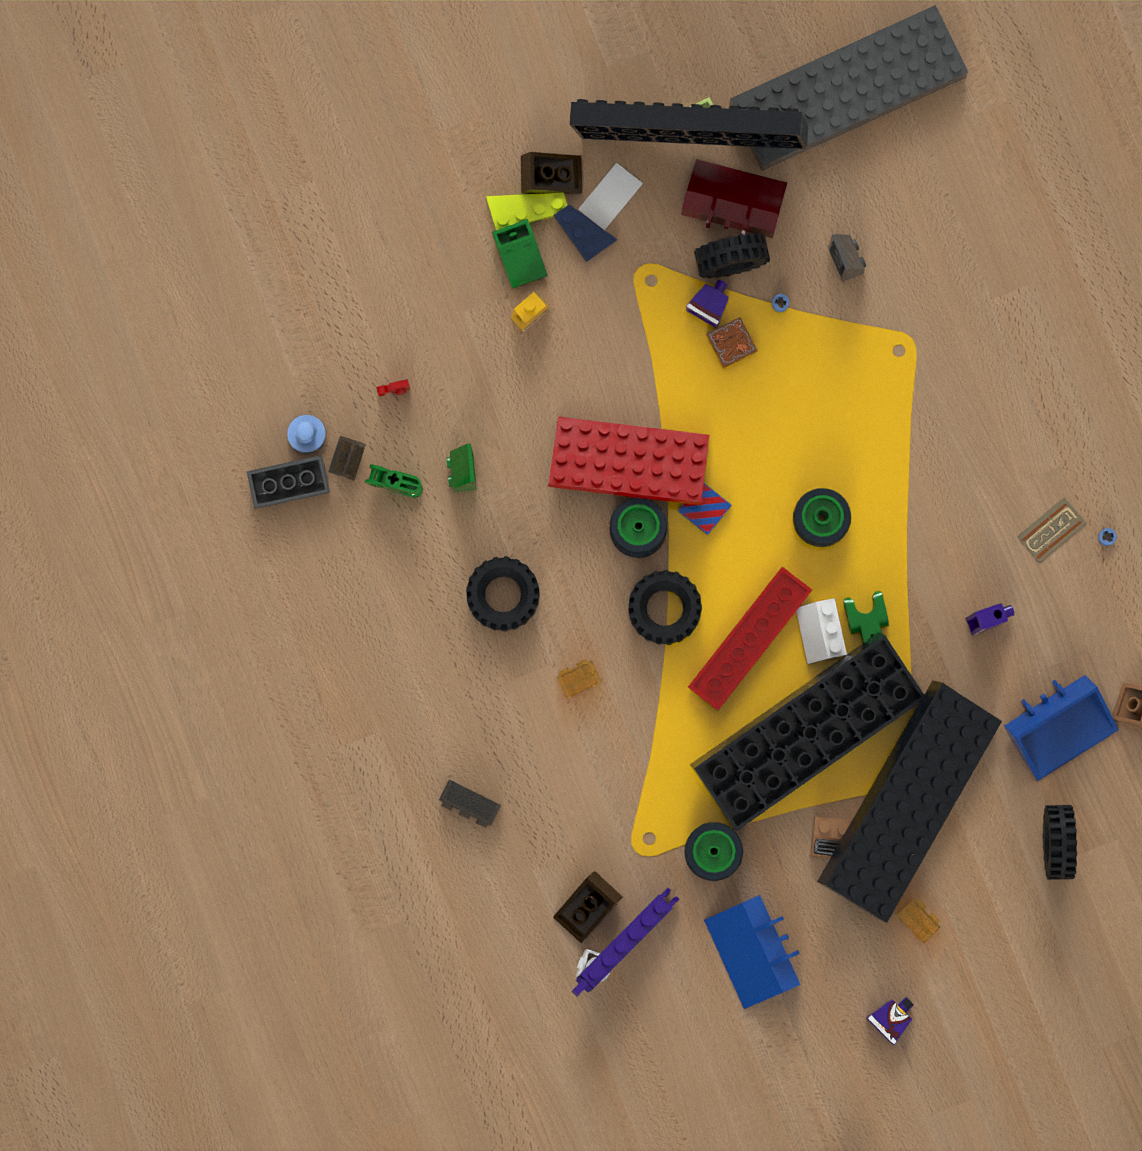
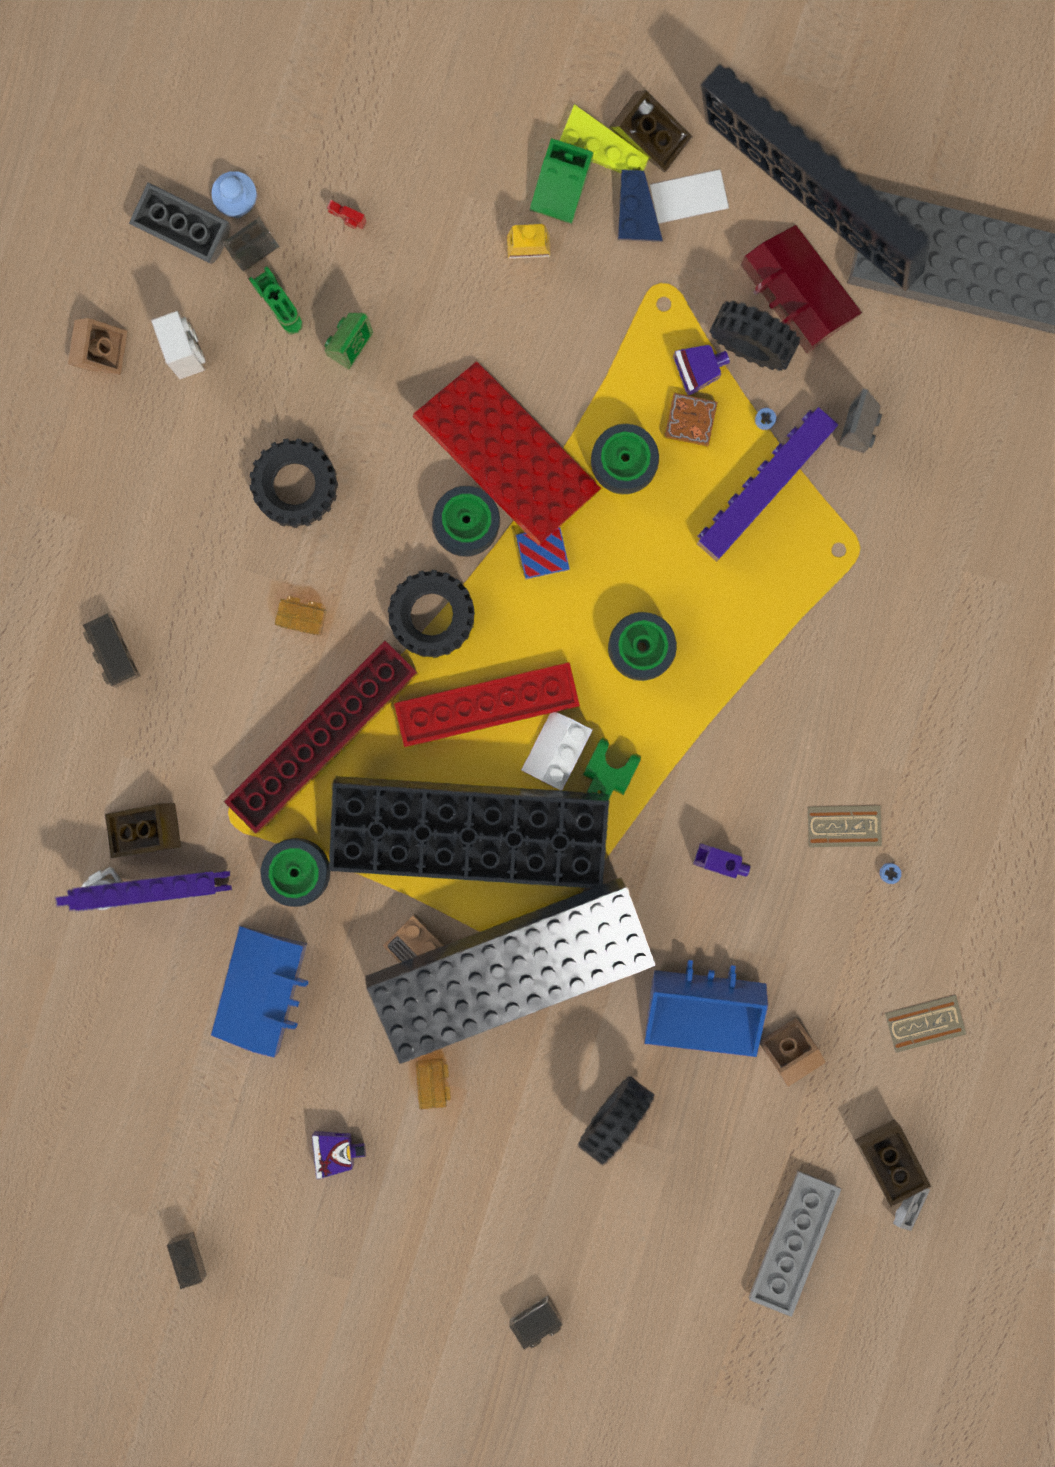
camera: 30 degrees right, 5 degrees up
(297, 607) = (97, 346): none -> medium nougat slope
(356, 562) = (179, 345): none -> white brick
(658, 747) = (321, 737): none -> dark red brick
(707, 417) = (623, 476): none -> wheel
(816, 346) = (767, 483): none -> dark purple brick
(1117, 1024) = (536, 1323): none -> clear smoke brick

